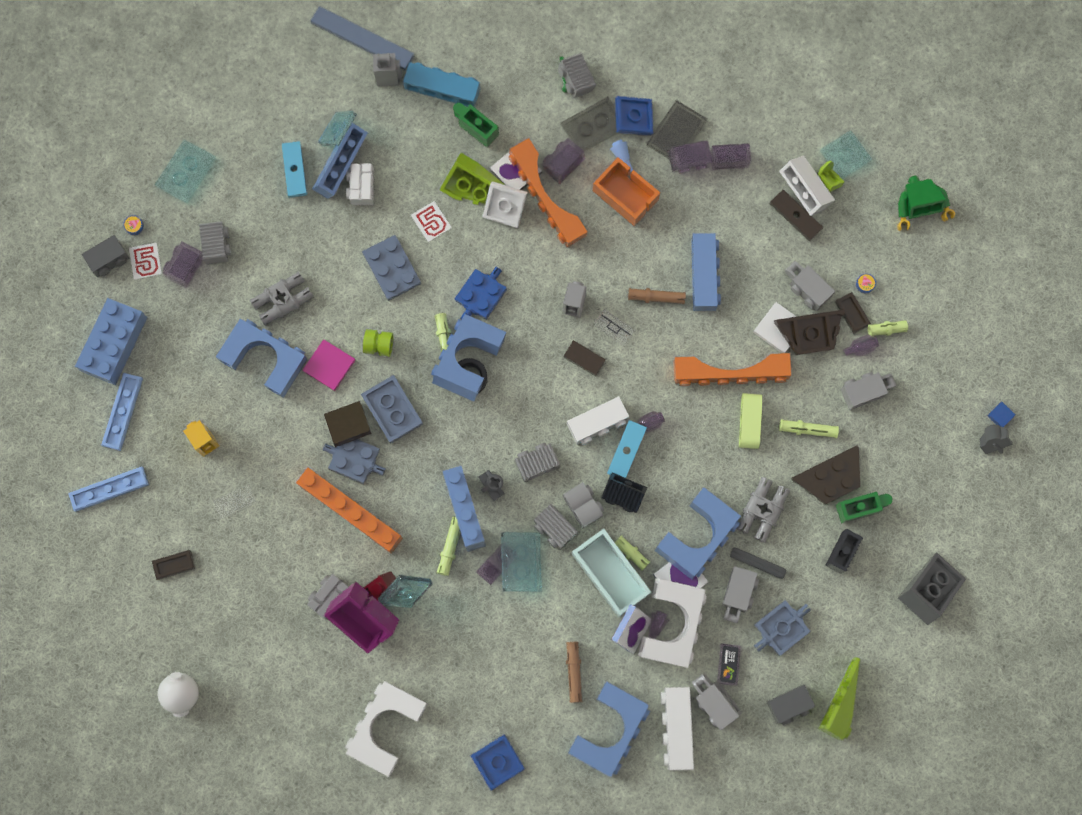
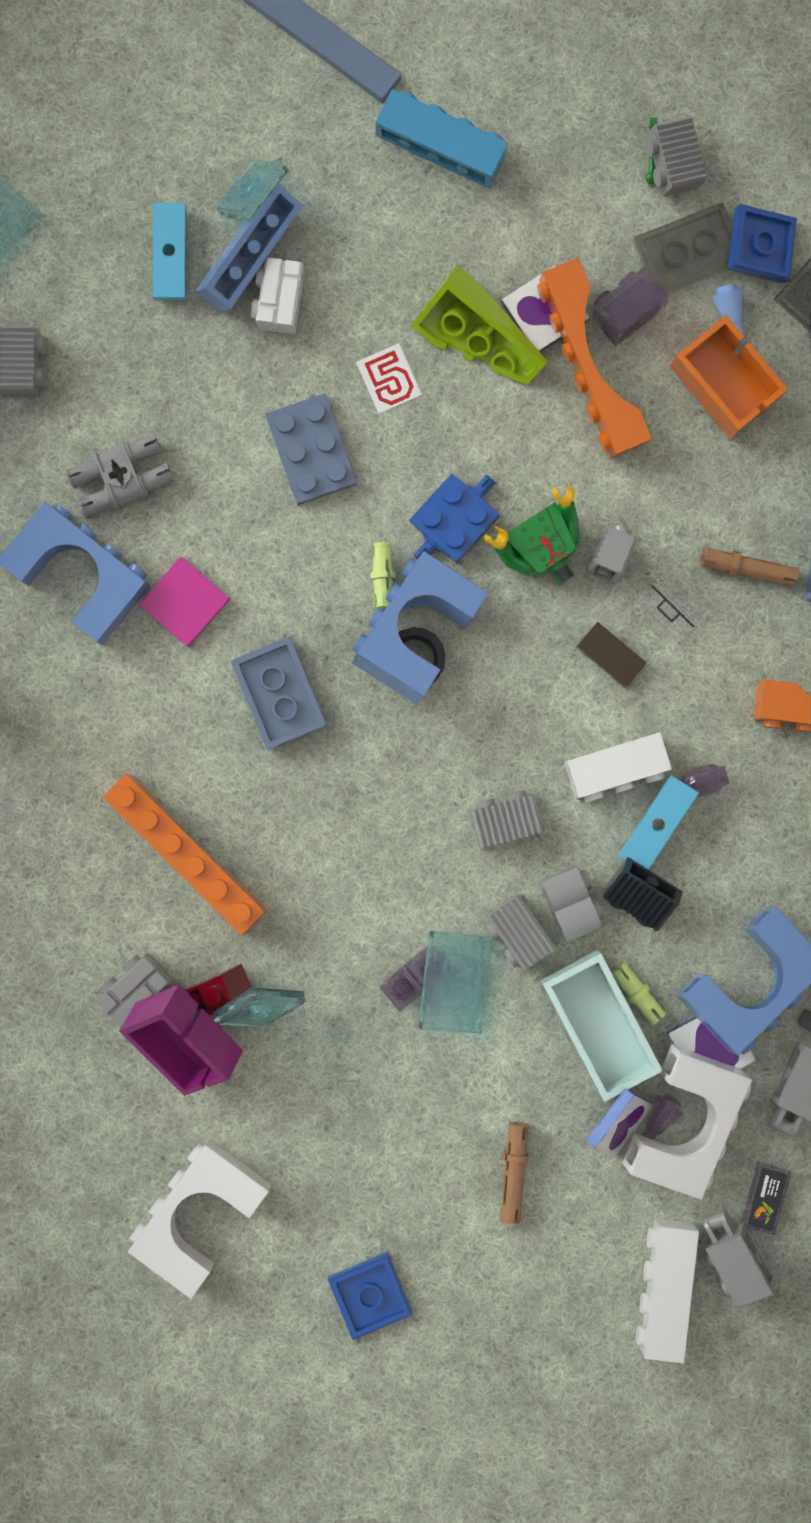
camera: 10 degrees right, 10 degrees up
(347, 424) = (201, 708): dark brown tile -> none
(354, 460) = (205, 767): sand blue plate -> none
(376, 342) = (270, 577): lime wheel -> none
(386, 69) = (350, 96): light grey brick -> none
(447, 555) = (343, 937): yellowish green pin -> none
(464, 508) = (375, 886): medium blue arch -> none
(476, 124) = (490, 217): green brick -> none
(492, 484) = (427, 844): dark grey piece -> none
(504, 204) = (518, 369): white tile -> none
(533, 298) = (542, 540): none -> green torso
(632, 712) = (548, 1319): medium blue arch -> none

